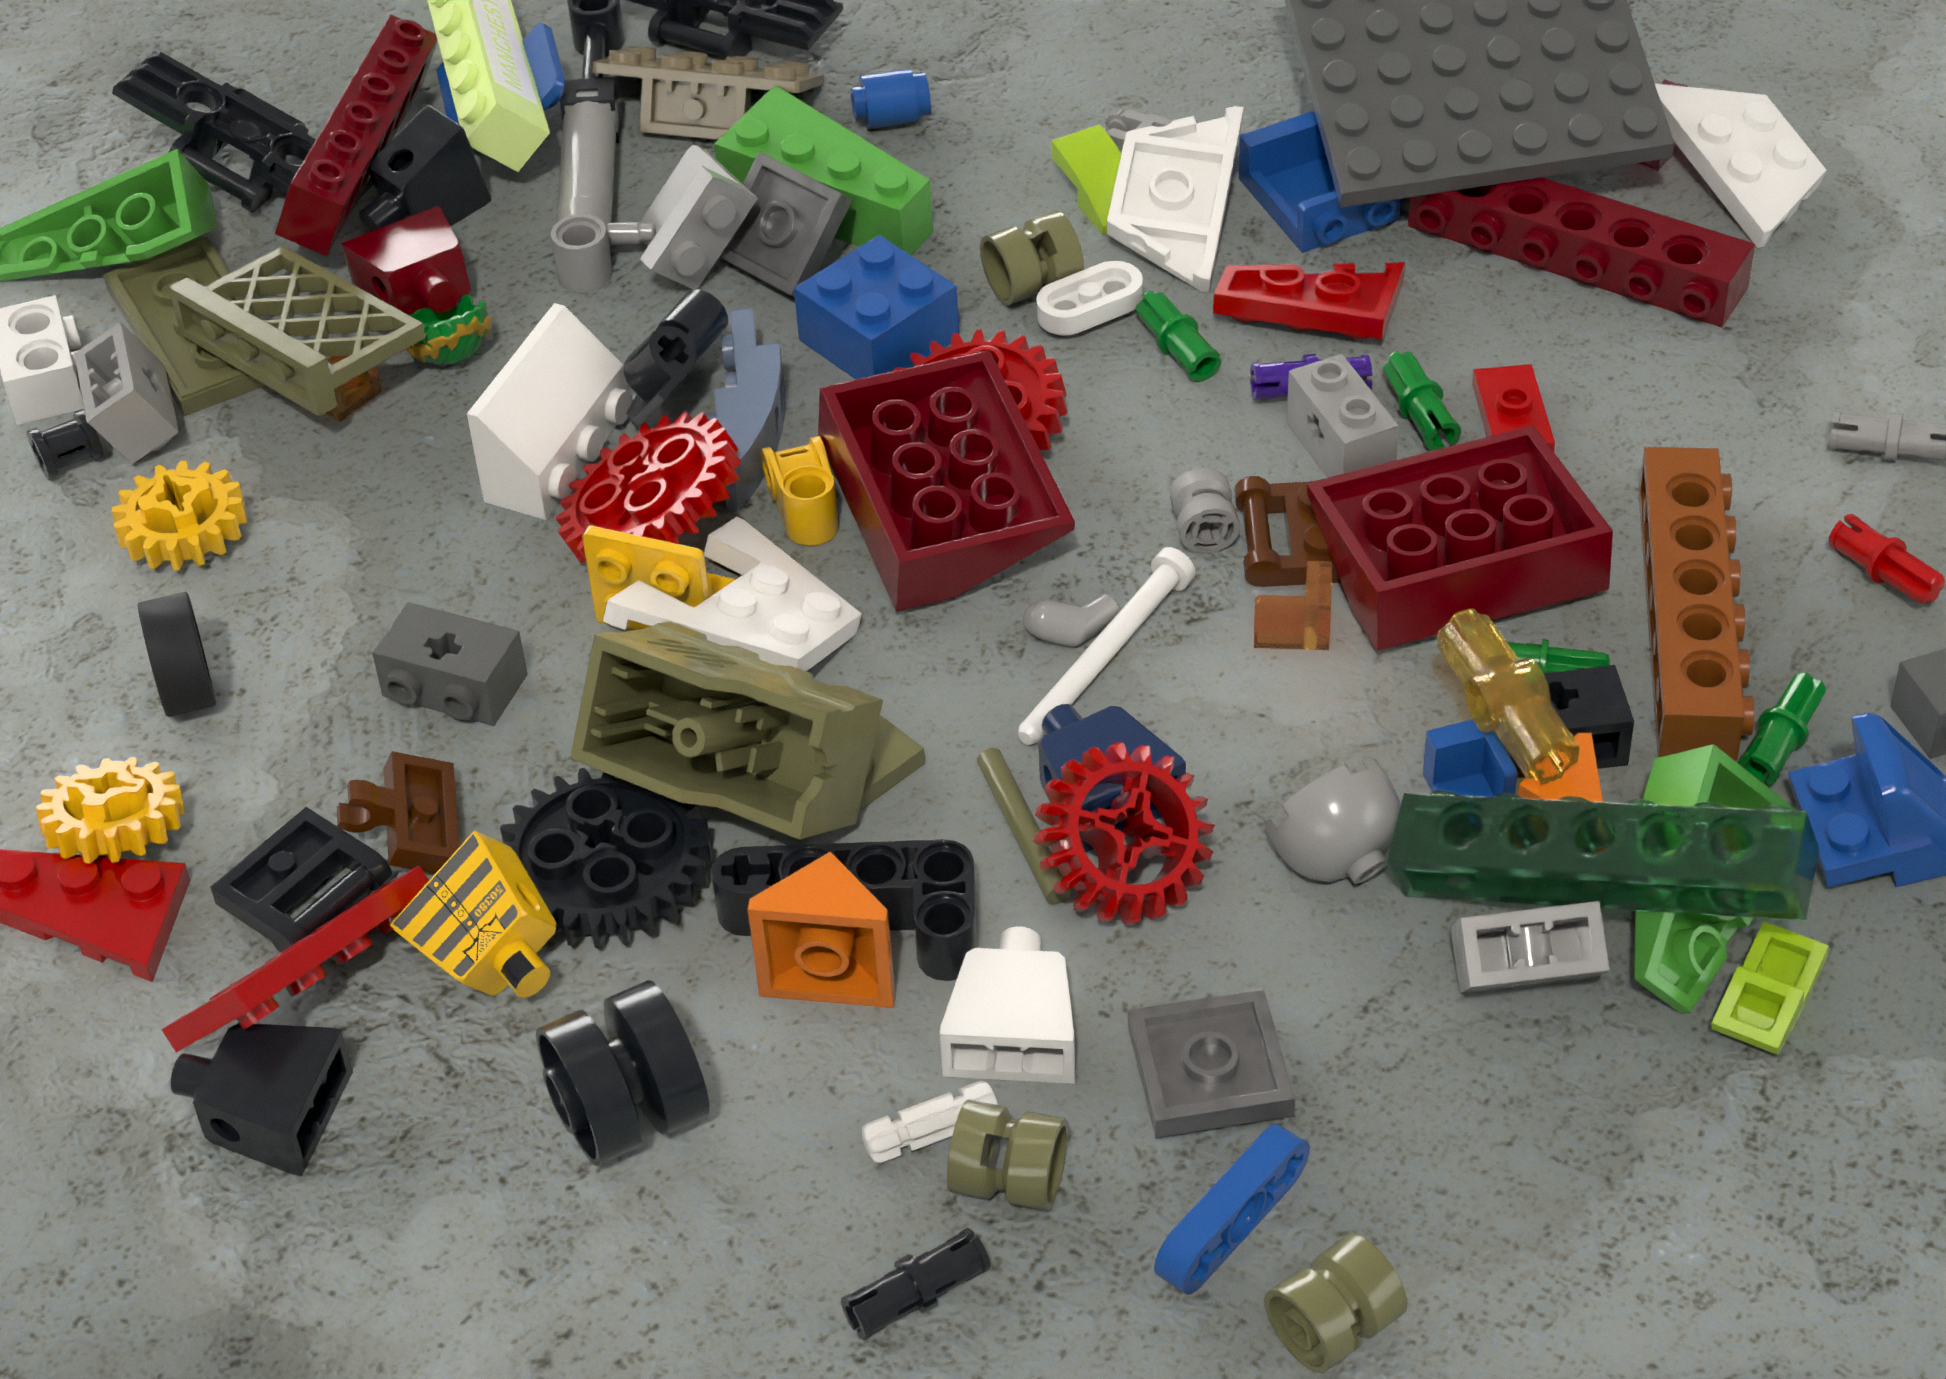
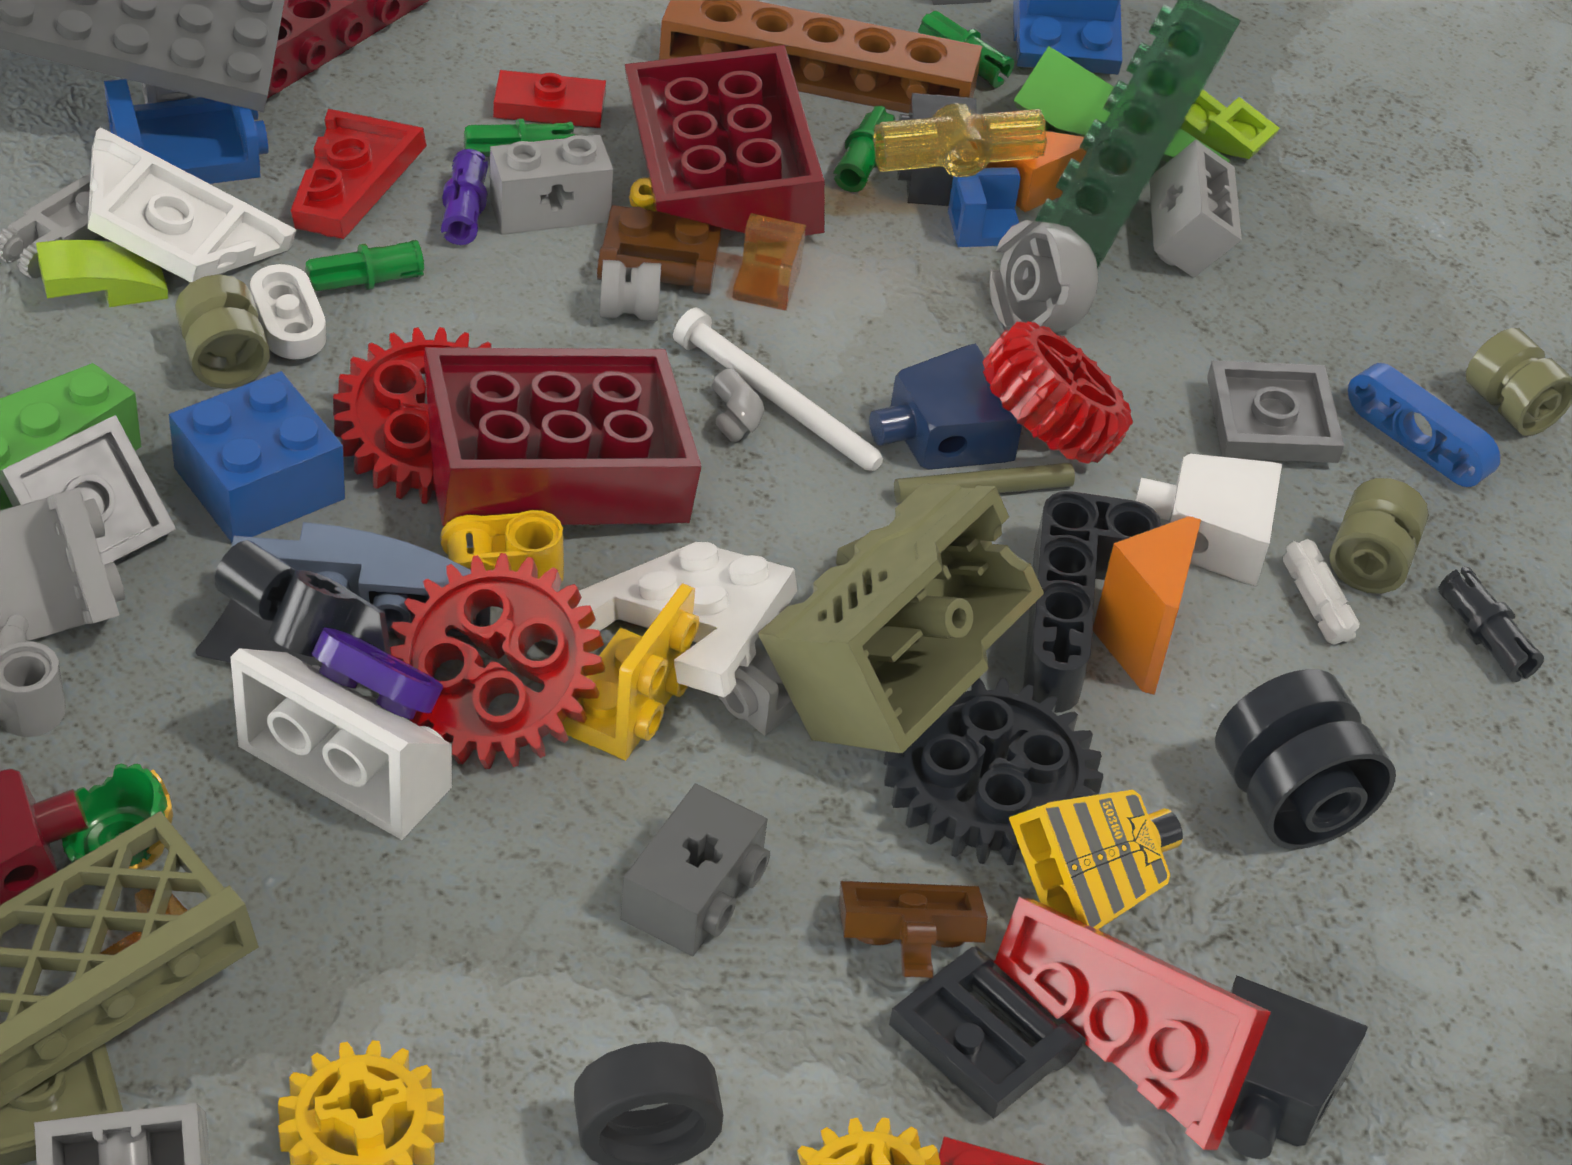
camera: 90 degrees left, 0 degrees up
(597, 423) = (354, 661): none -> dark purple plate

